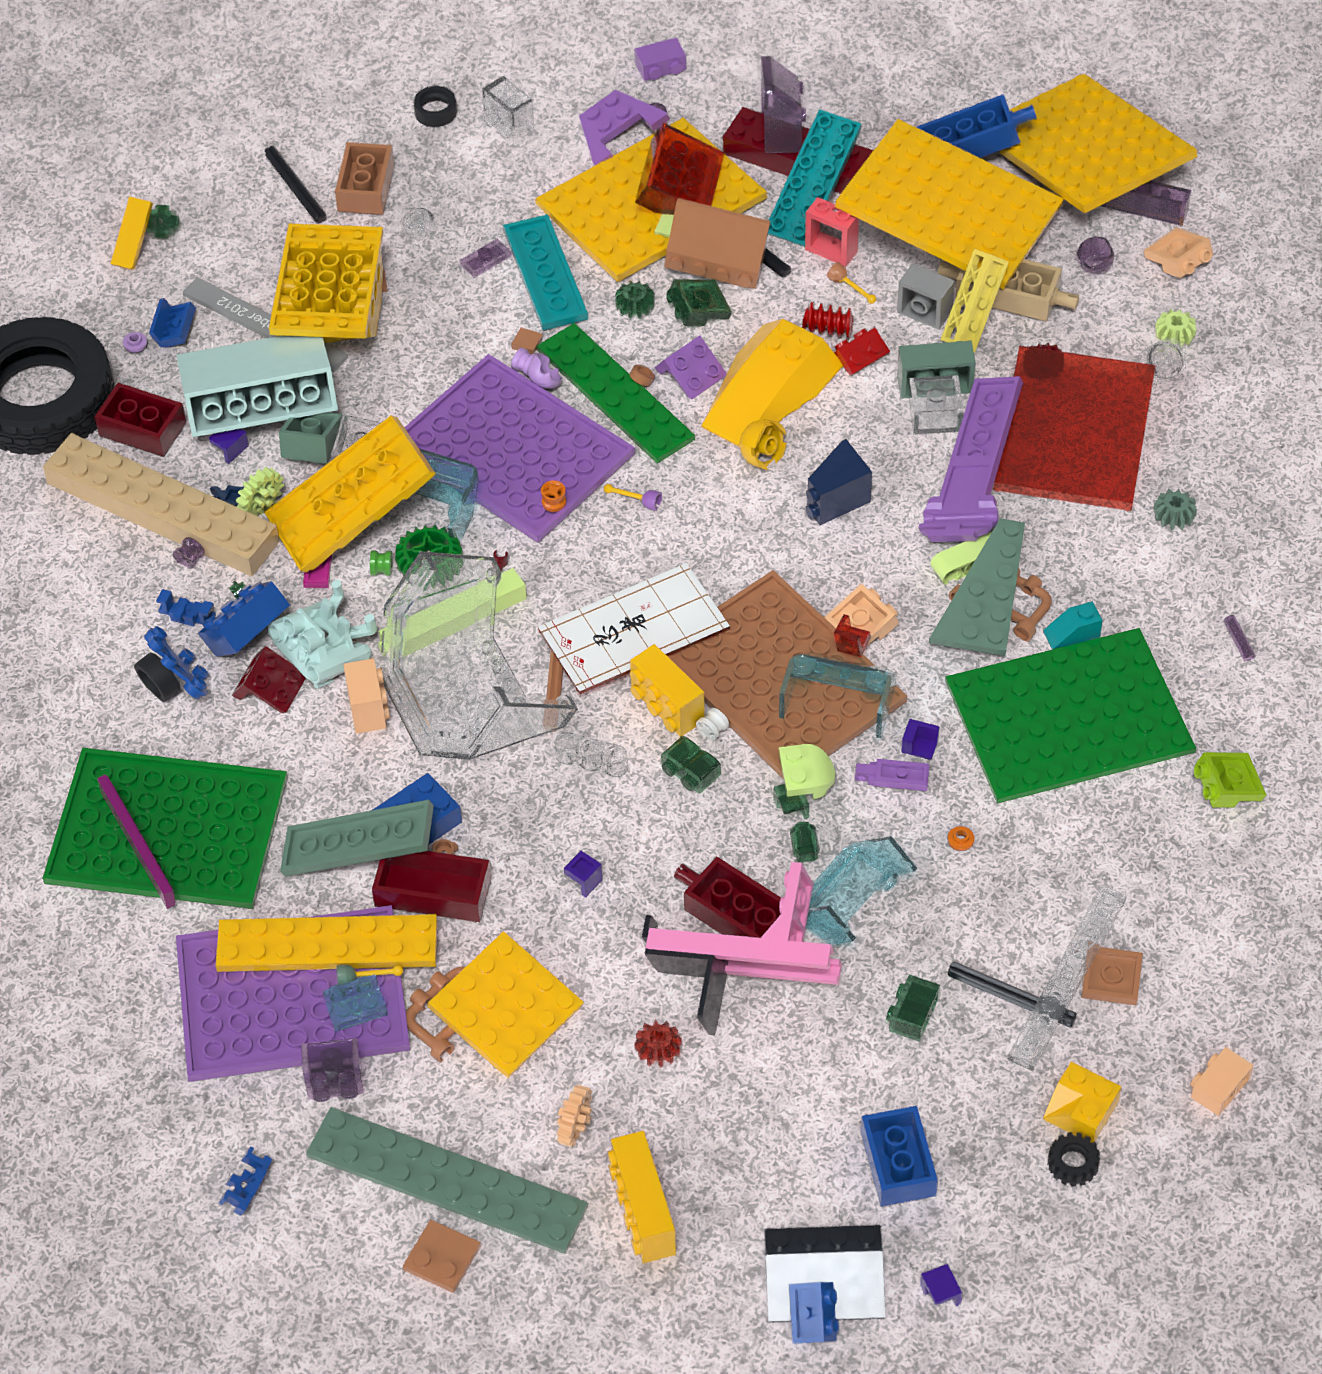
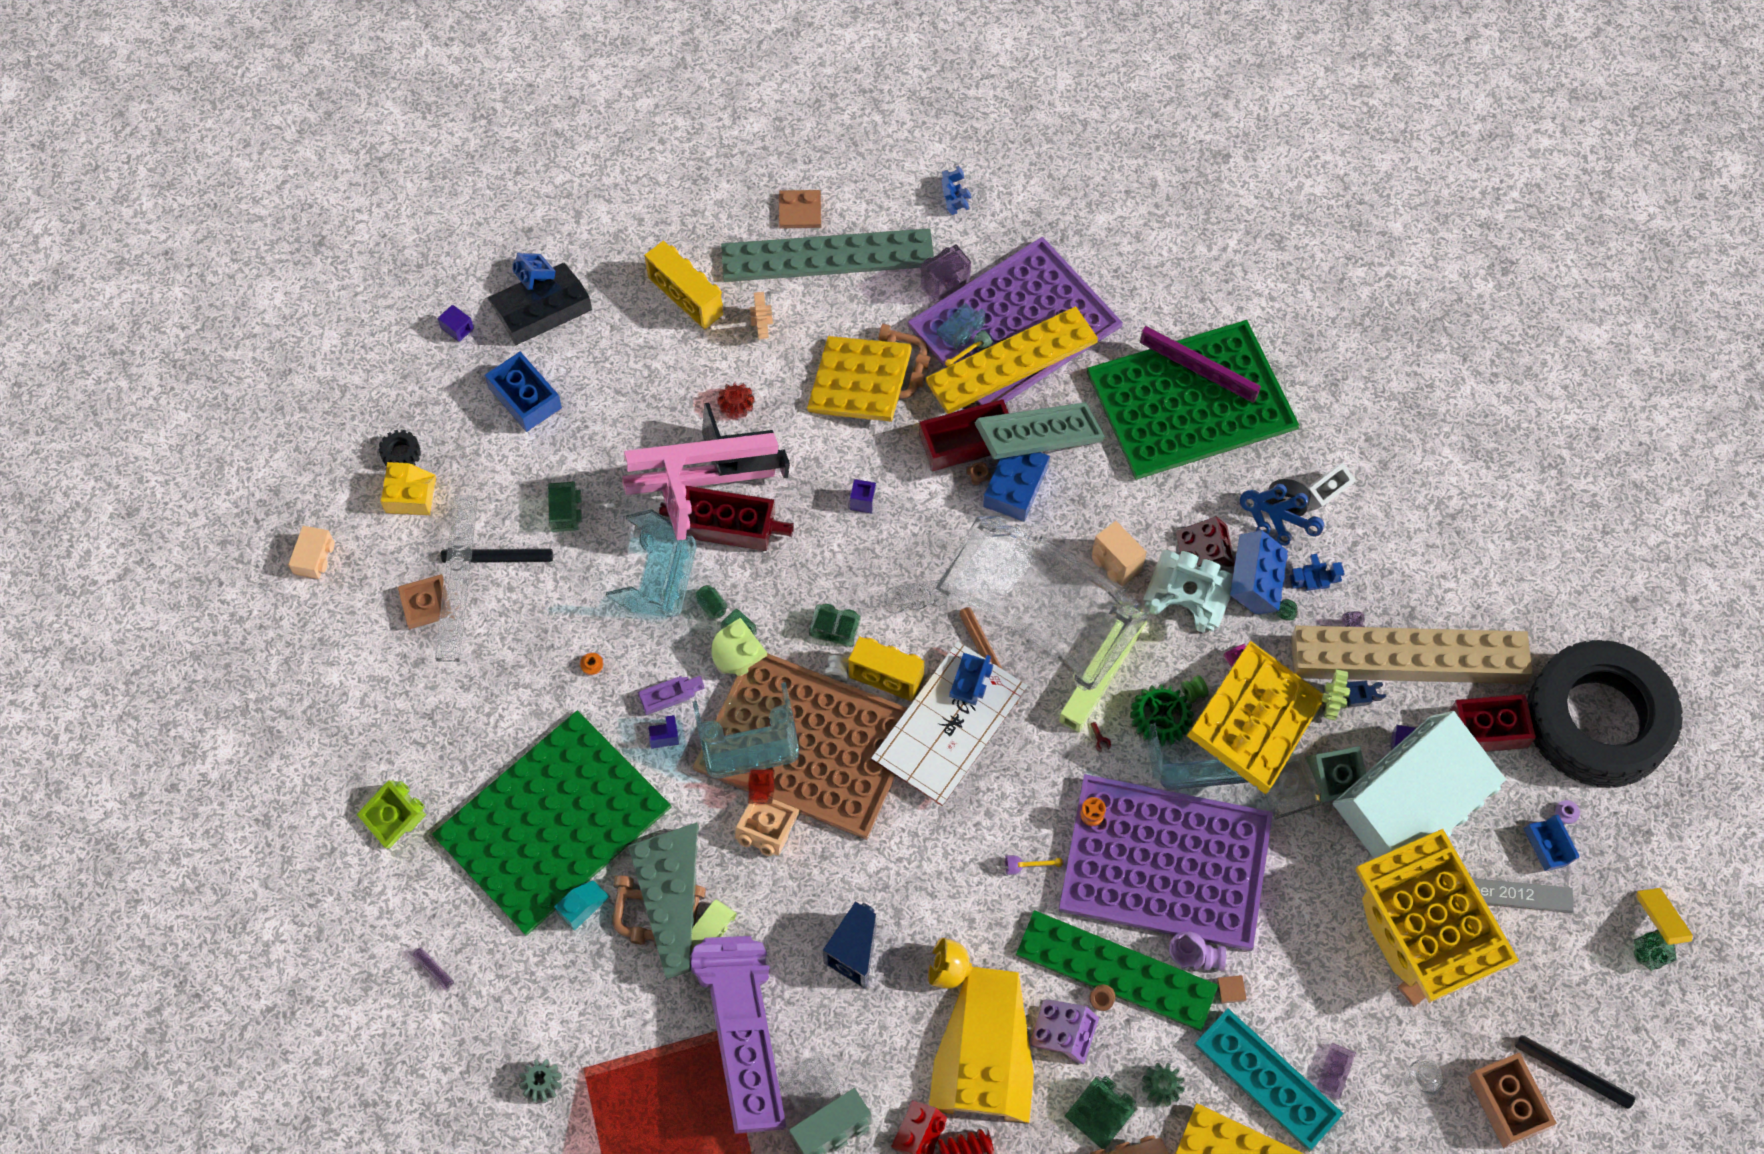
camera: 150 degrees right, 10 degrees up
(108, 673) = (1329, 486): none -> white brick
(589, 645) = (970, 677): none -> blue bracket

